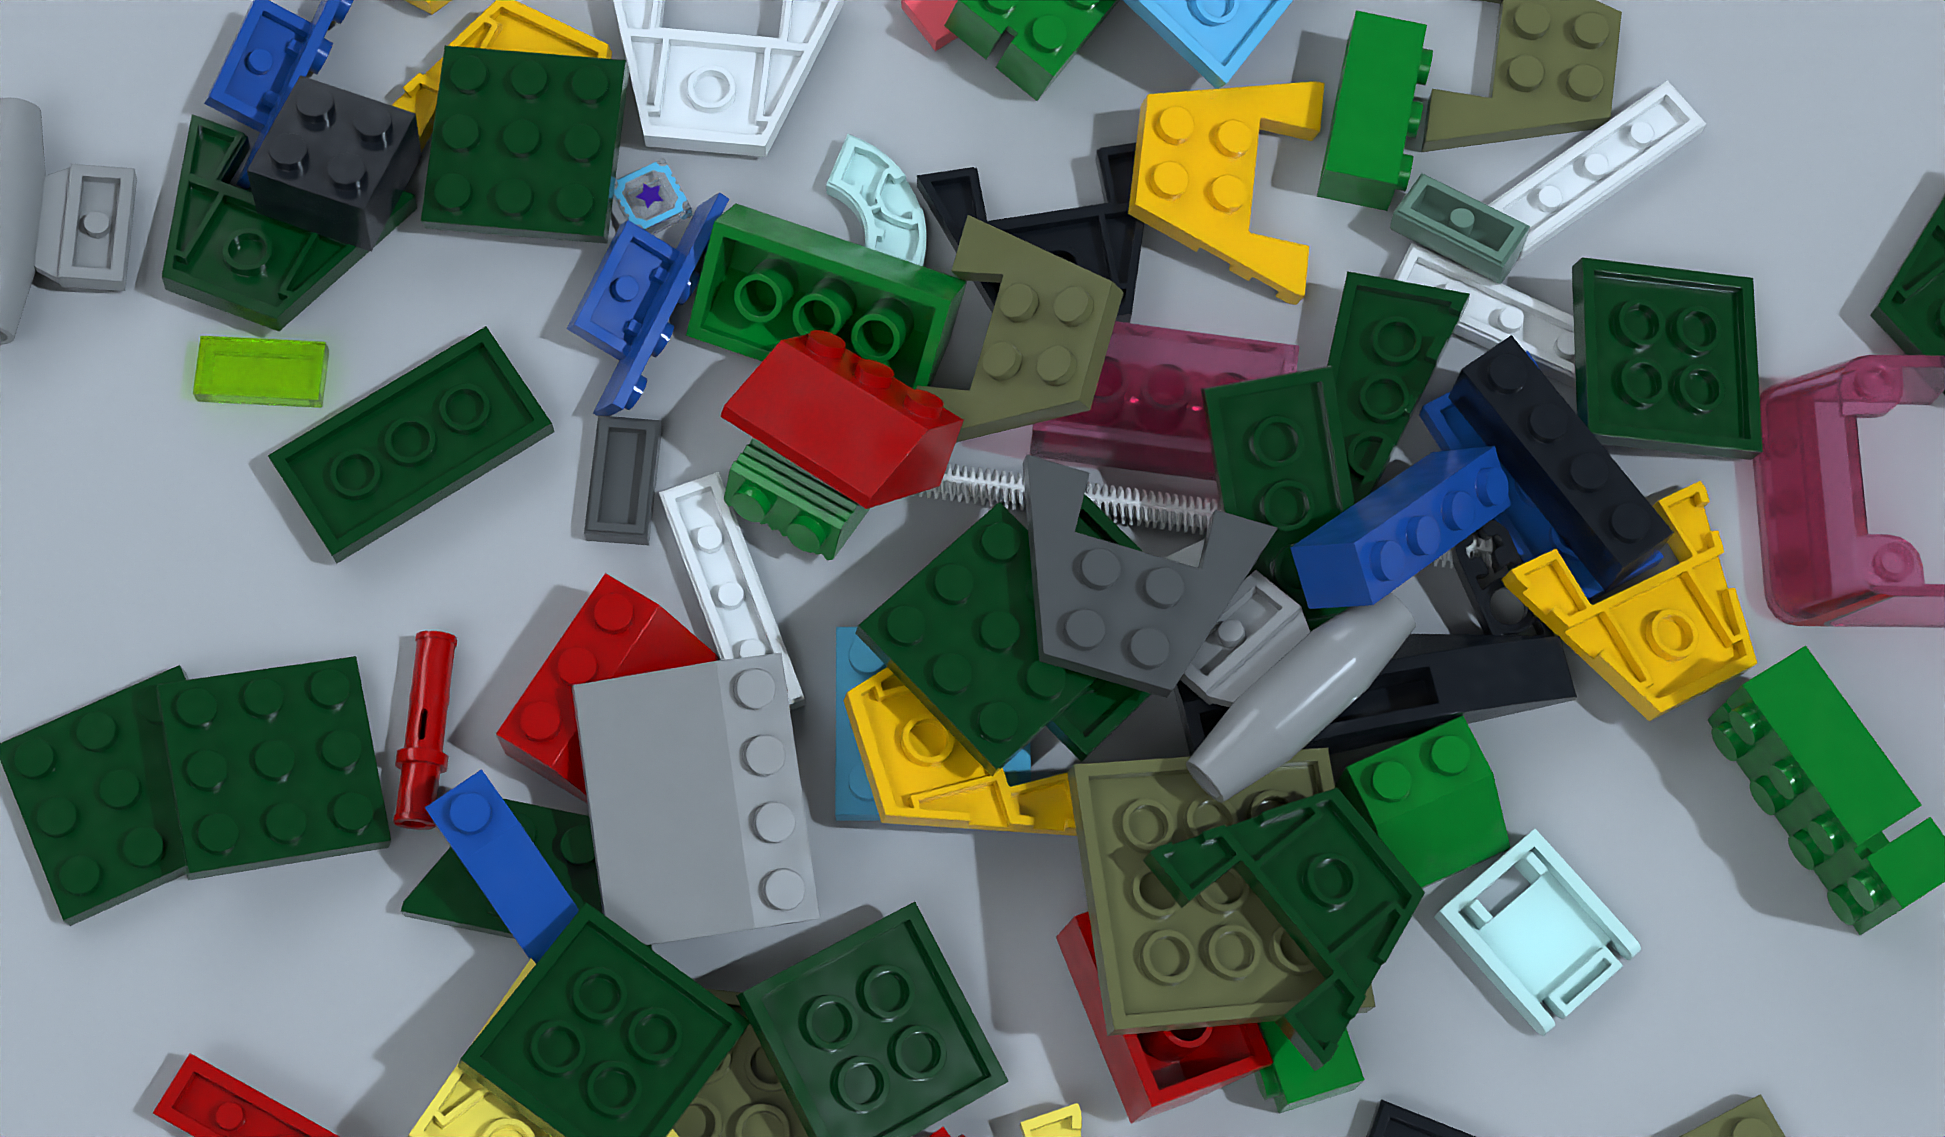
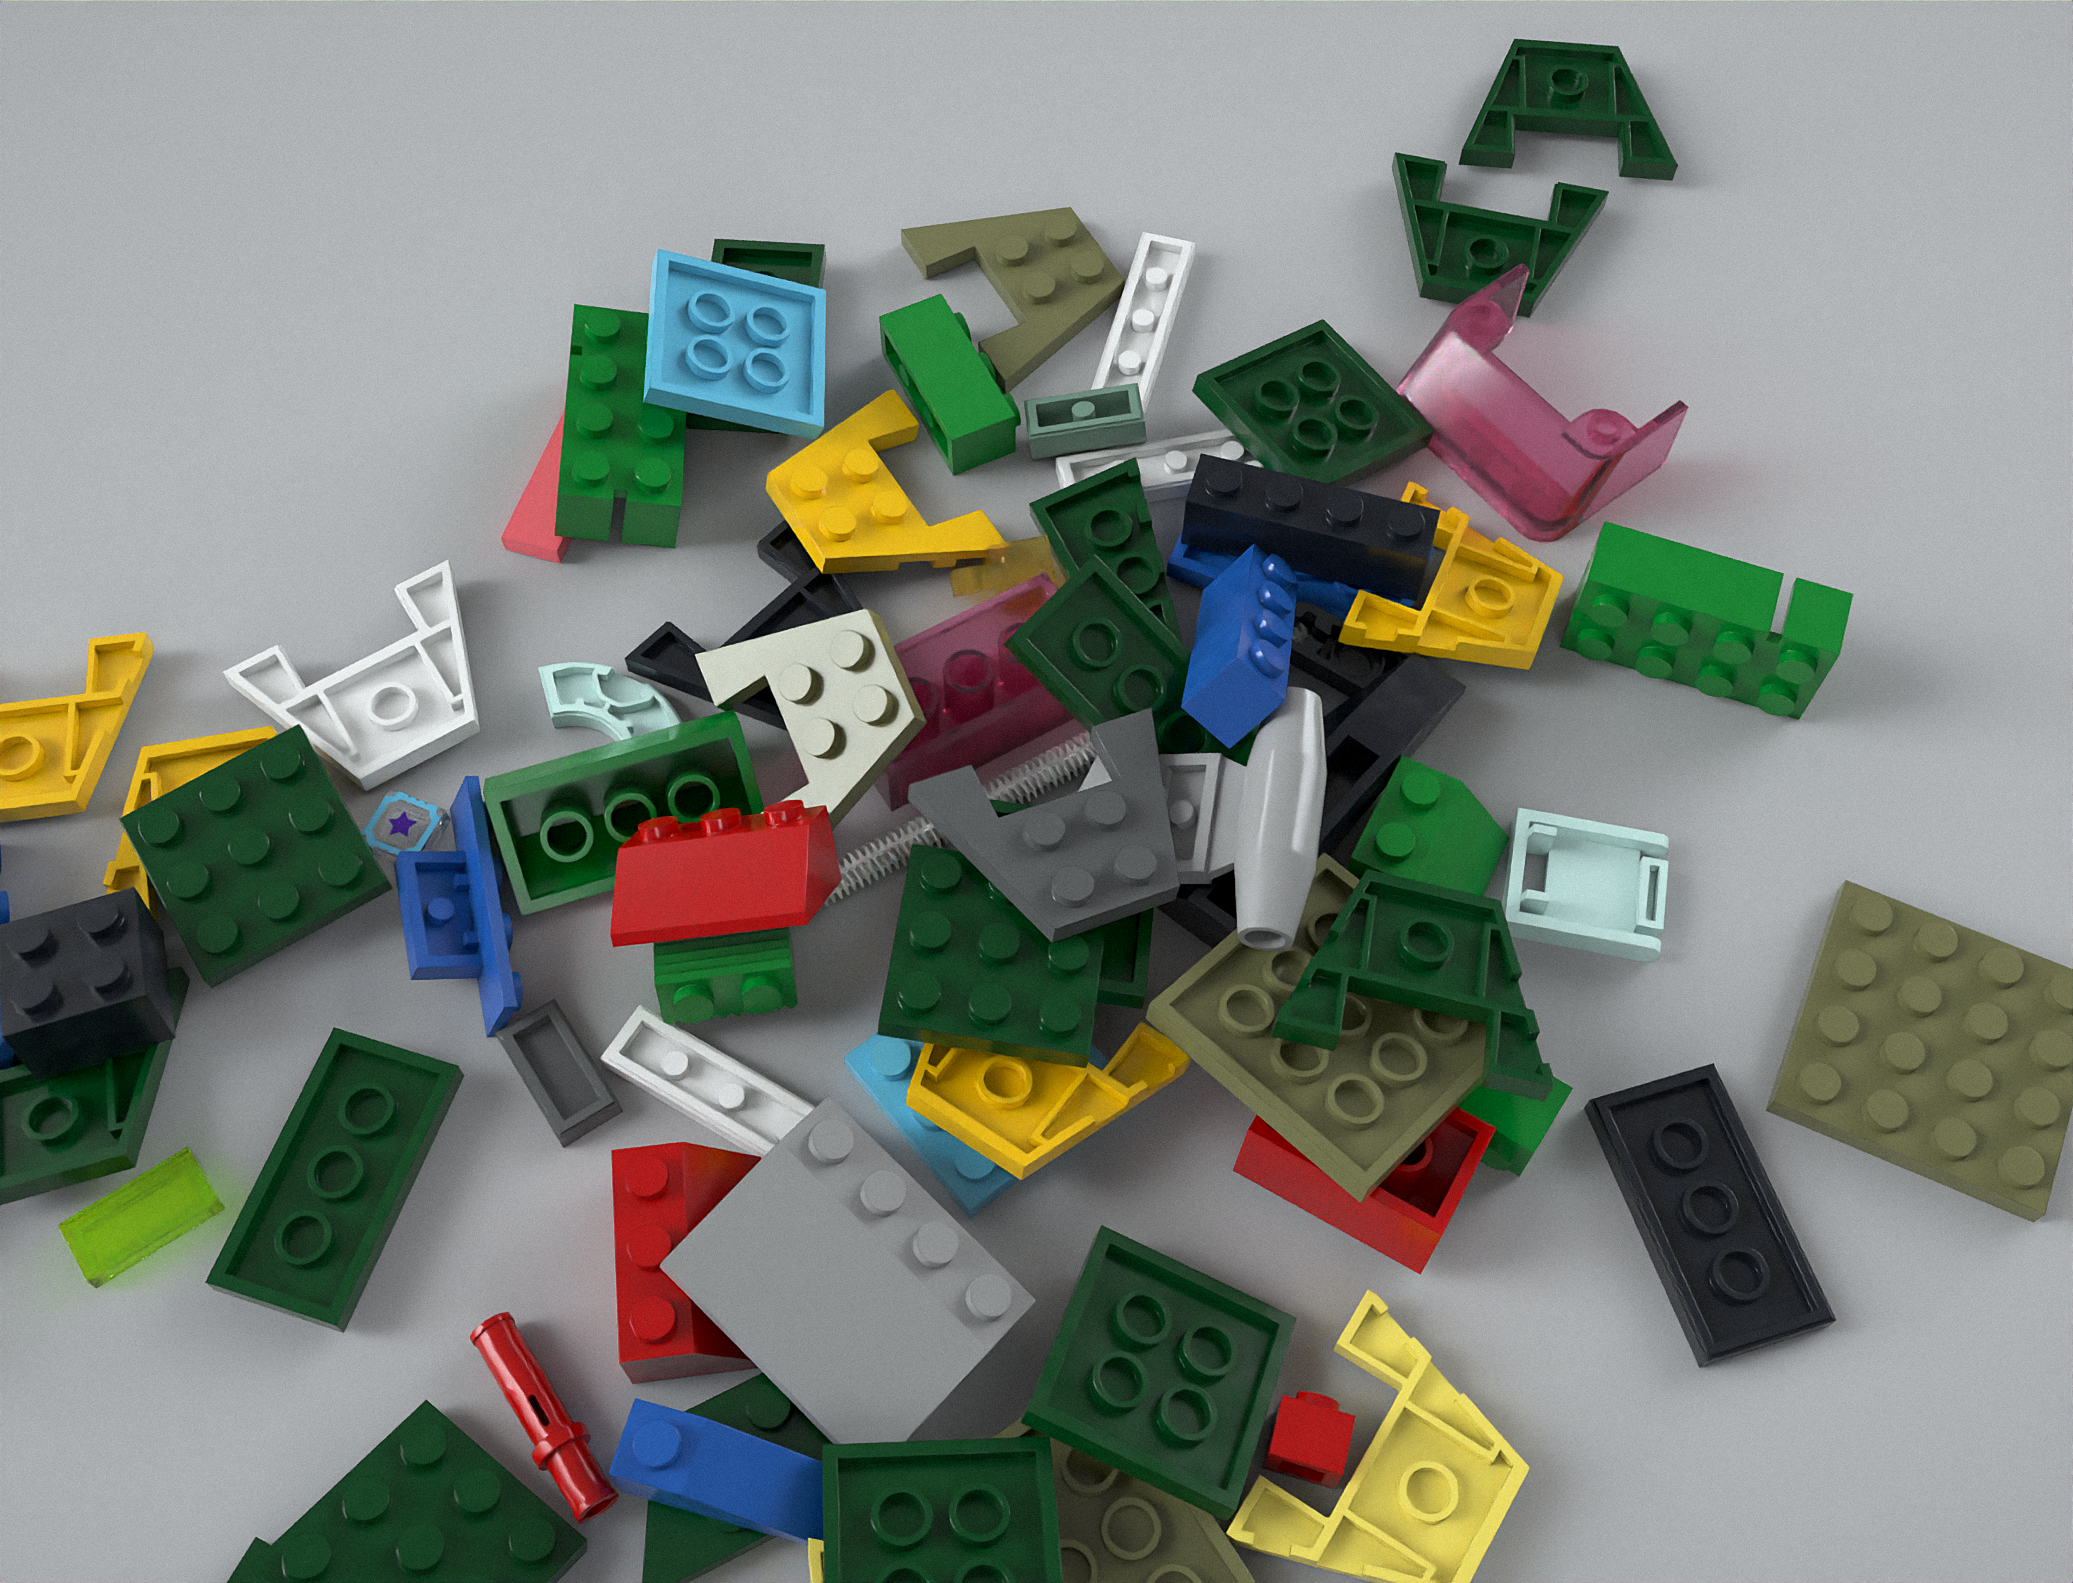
camera: 35 degrees left, 10 degrees down
(1287, 320) = (1008, 566): none -> clear yellow plate

